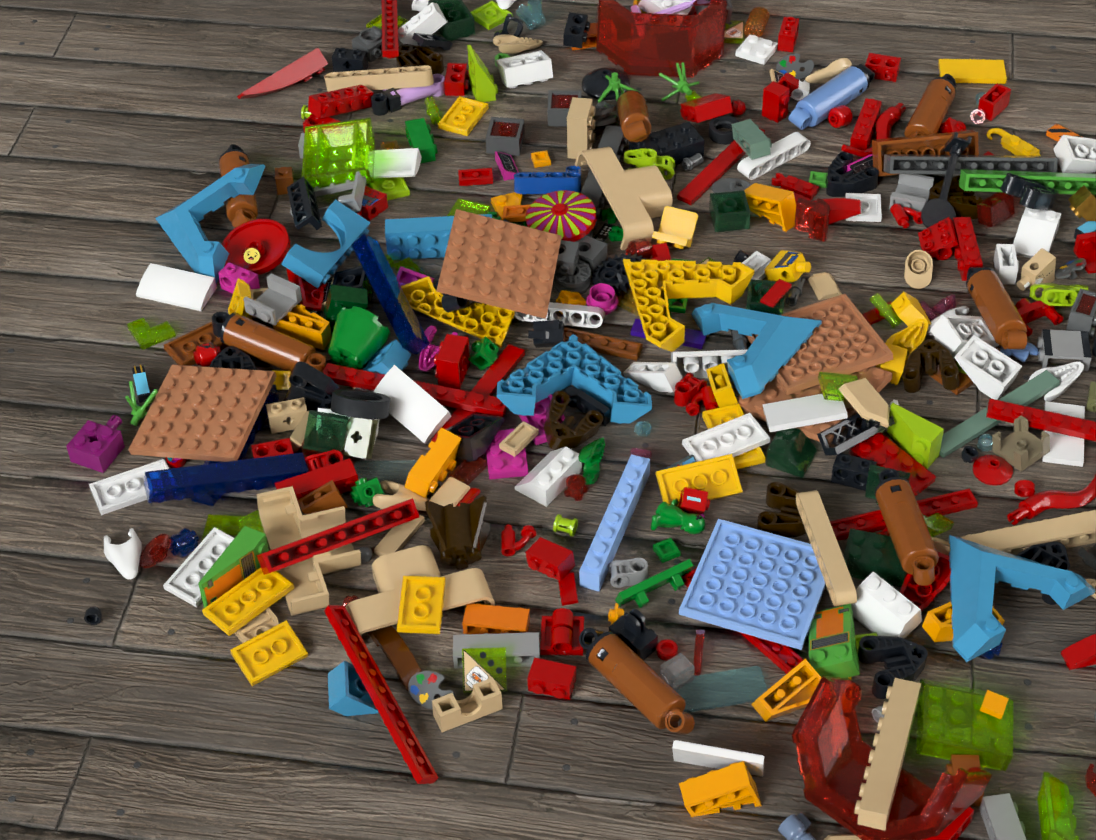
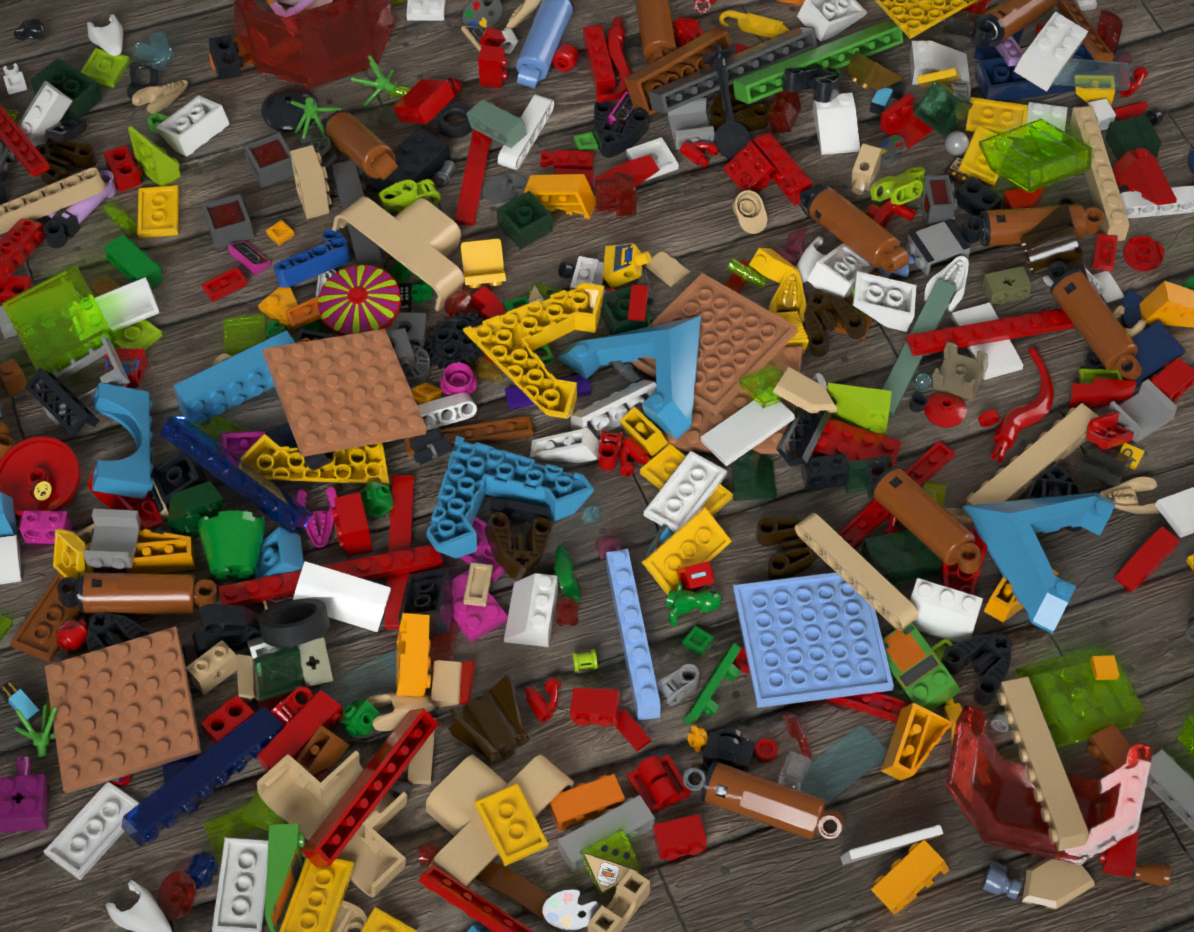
camera: 30 degrees left, 10 degrees up
(282, 380) = (179, 622): yellow tile -> none
(1006, 263) = (830, 170): white brick -> none

